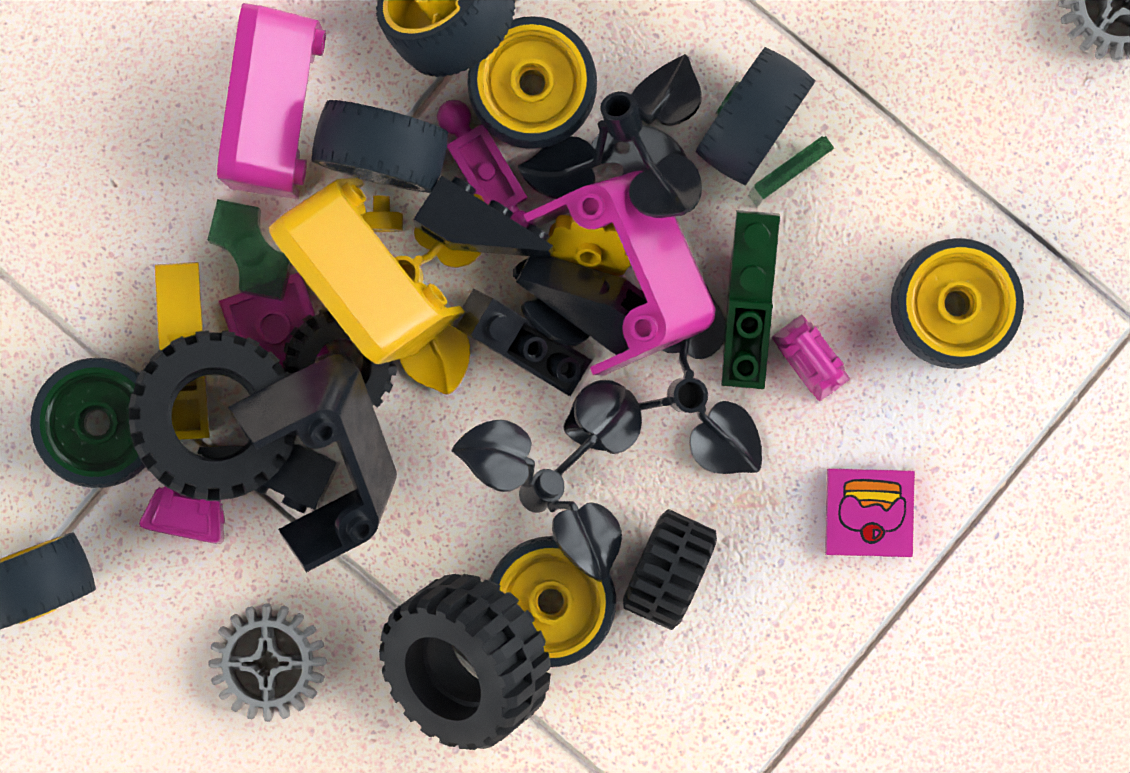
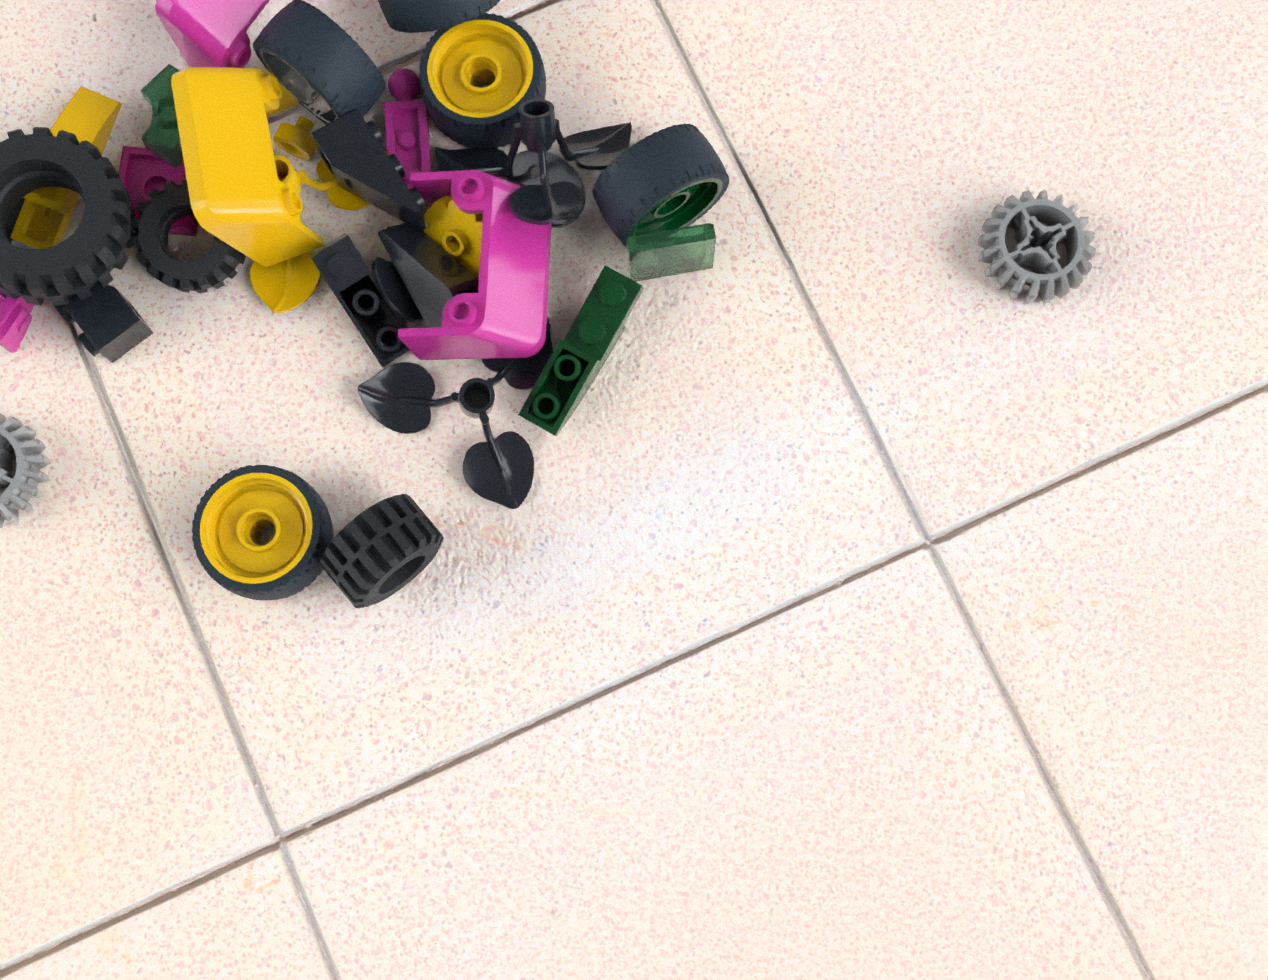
camera: 30 degrees right, 10 degrees down
(326, 407) = (156, 253): black windscreen -> none
(494, 639) = (147, 541): black tyre -> none
(499, 459) = (316, 480): black plant -> none
(811, 357) = (613, 432): dark pink piece -> none
(869, 512) = (598, 595): dark pink tile -> none
(990, 295) = (772, 405): yellow wheel -> none

